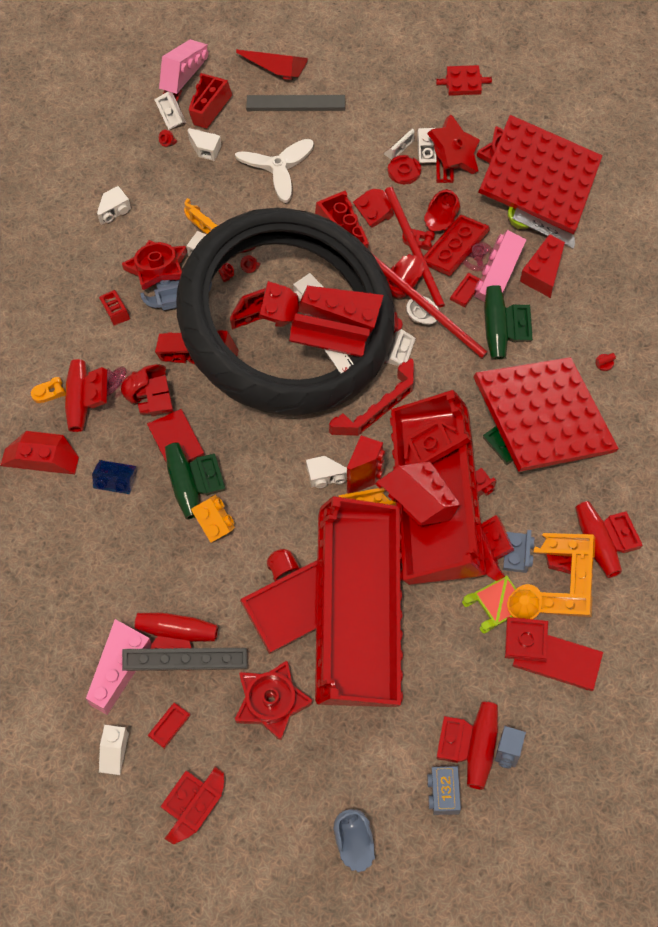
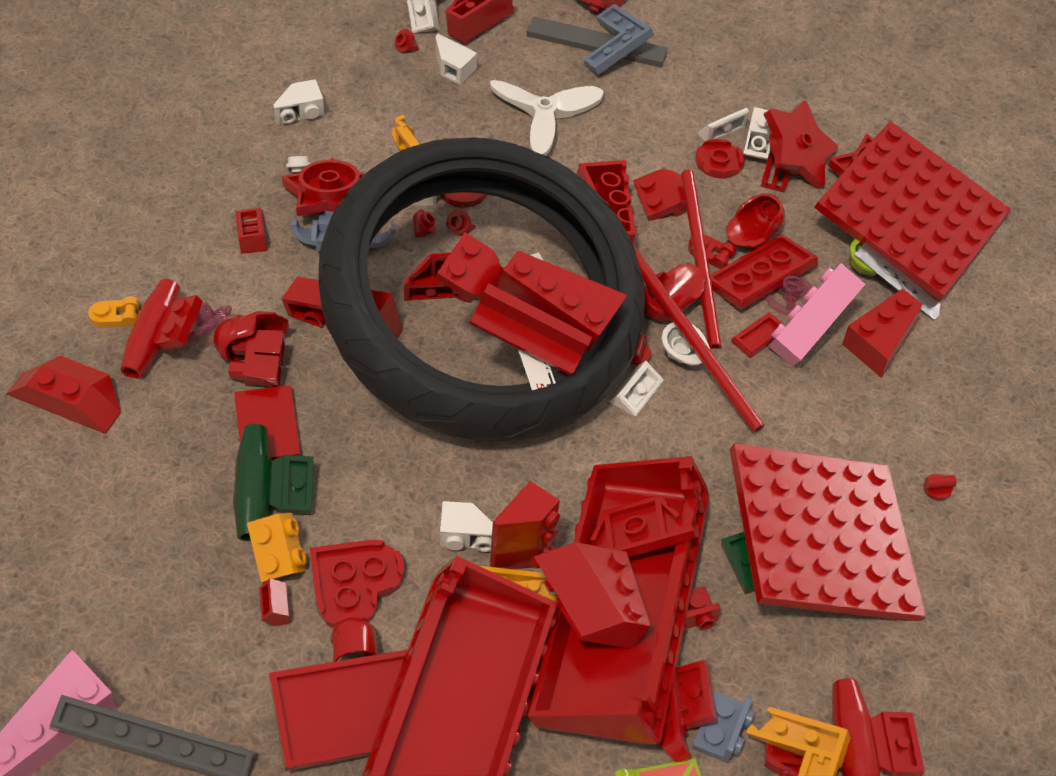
camera: 10 degrees right, 10 degrees down
(113, 476) = (157, 451): clear blue bracket -> none
(128, 250) = (297, 163): none -> white plate
(175, 630) = (158, 693): red plate -> none
(224, 553) = (274, 603): none -> red piece
(266, 524) = (353, 577): none -> red plate
(318, 95) = (629, 35): none -> sand blue plate
(344, 426) = (517, 472): red slope -> none
(464, 80) = (839, 69): red plate -> none
(504, 322) = (802, 391): dark green plate -> none

